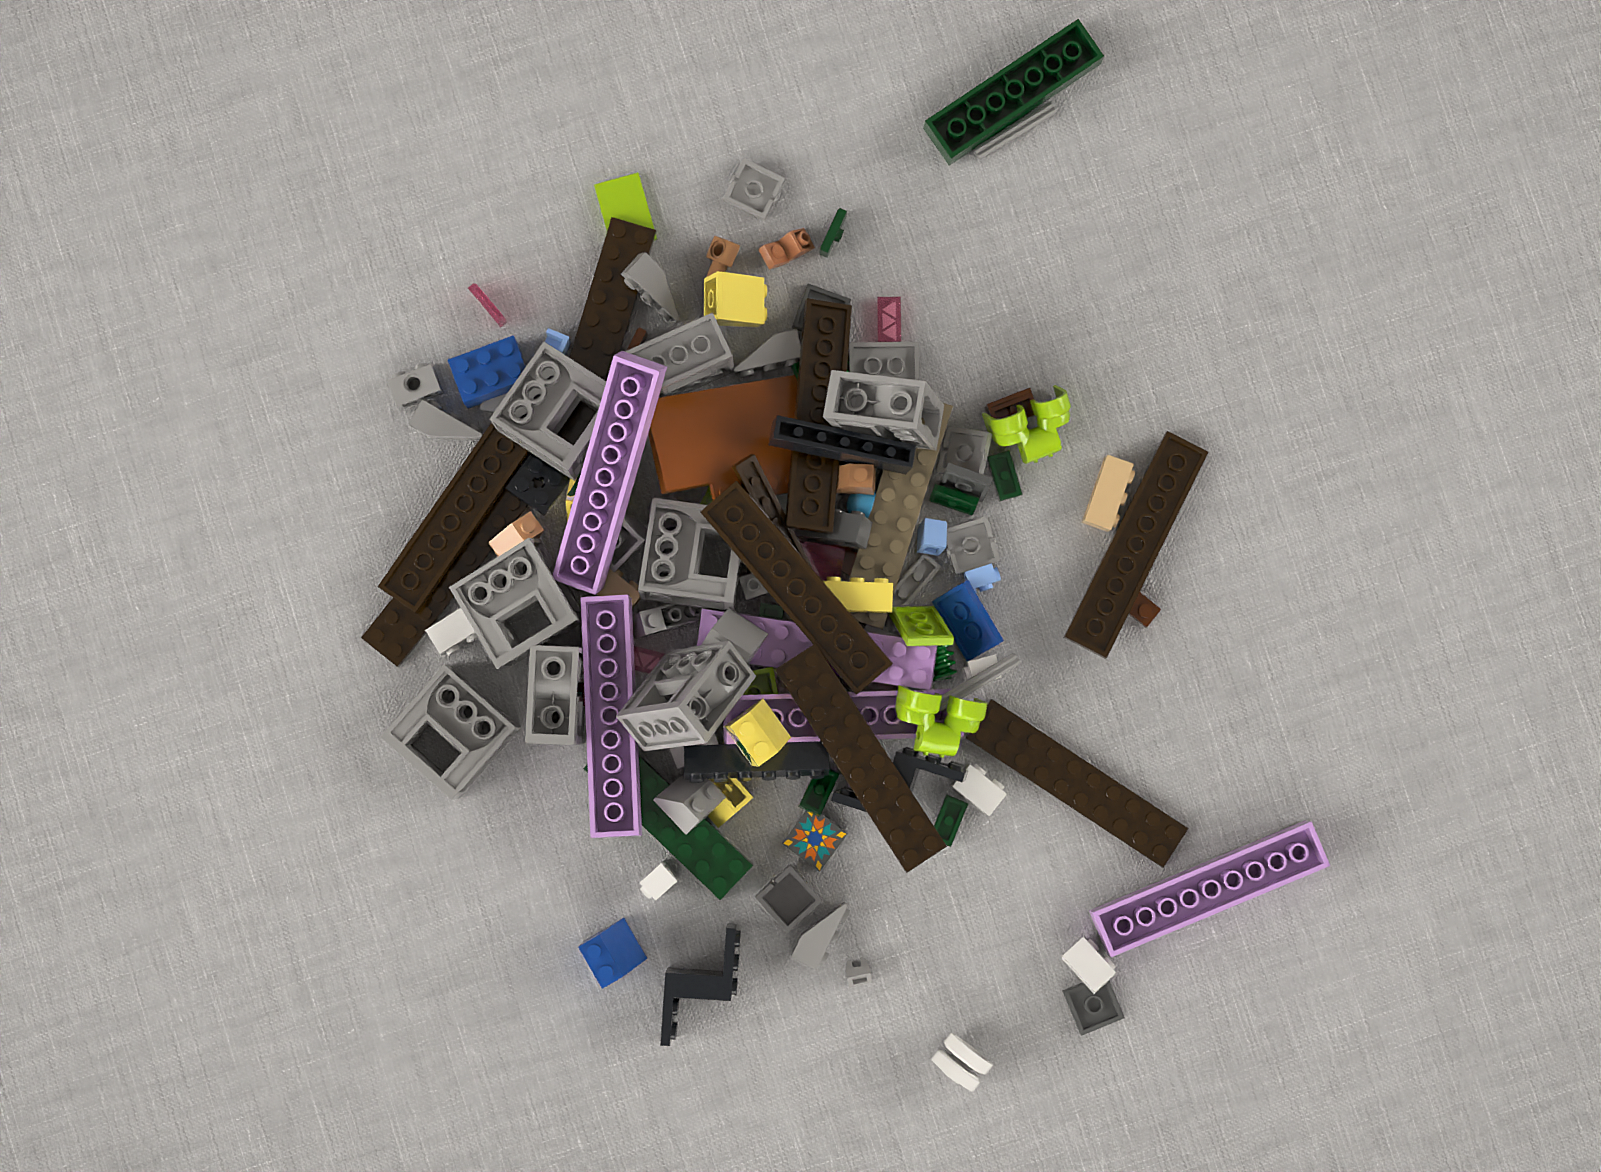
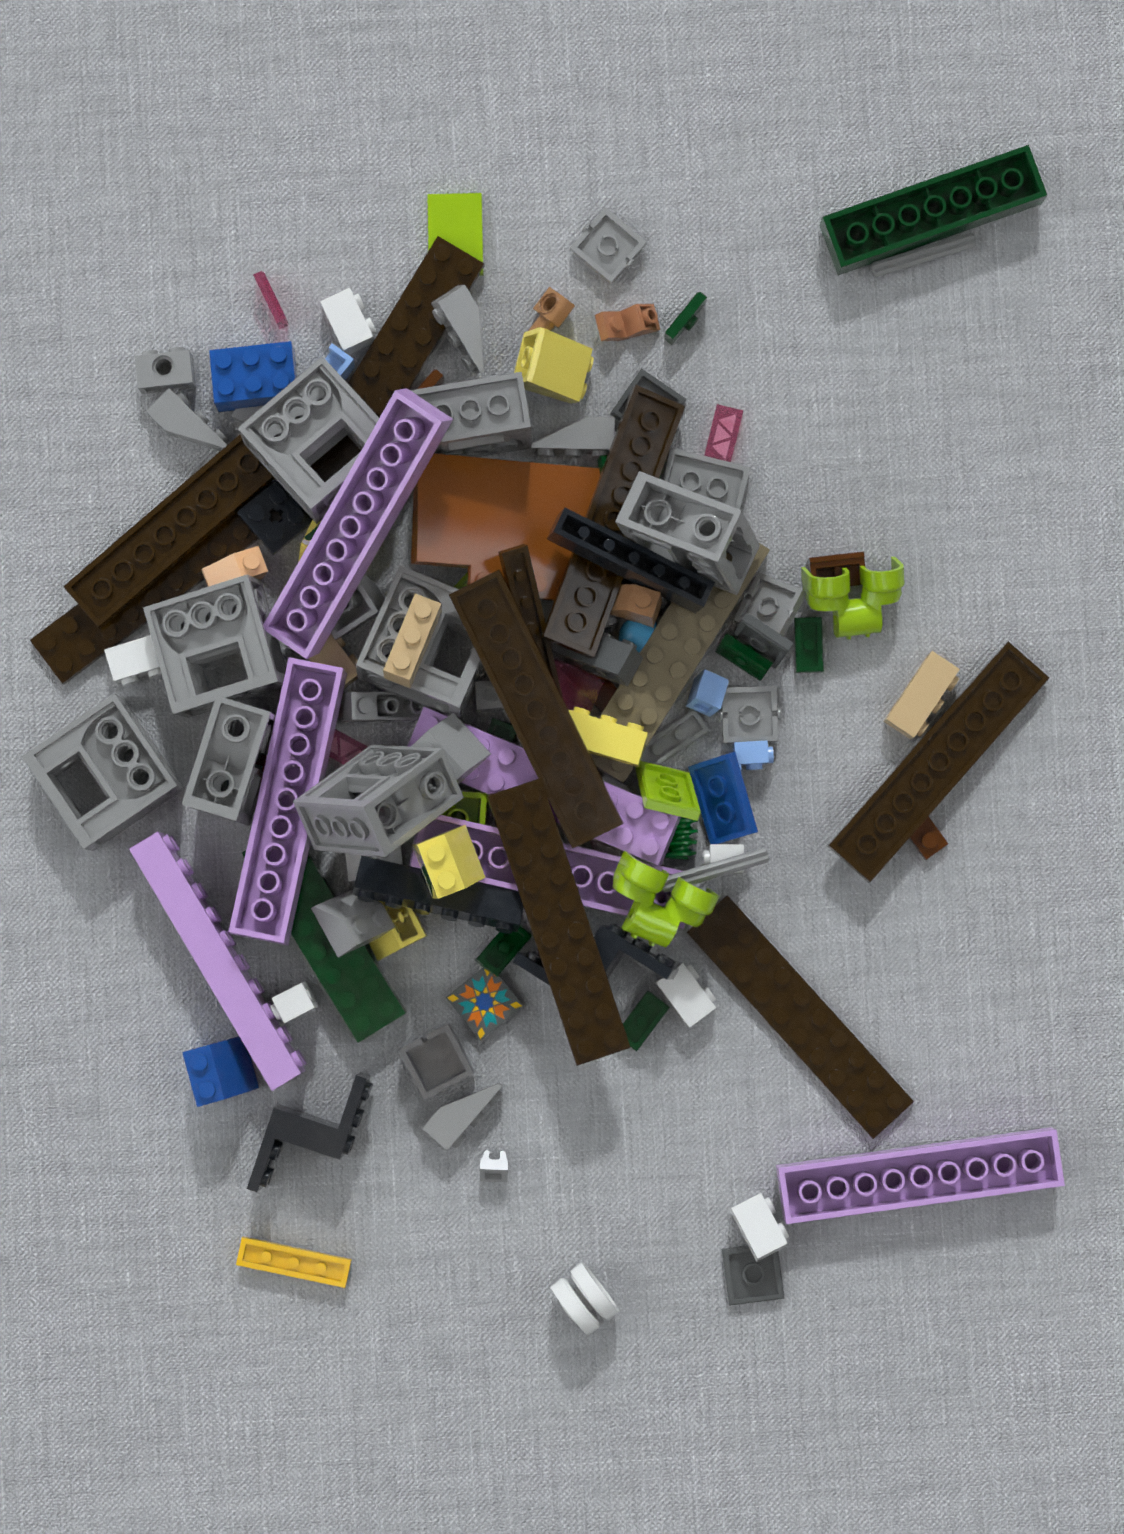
camera: 20 degrees right, 0 degrees up
(555, 306) = (348, 322): none -> white brick
(586, 862) = (217, 959): none -> lavender brick
(680, 557) = (412, 640): none -> tan brick
(713, 1094) = (293, 1262): none -> yellow plate

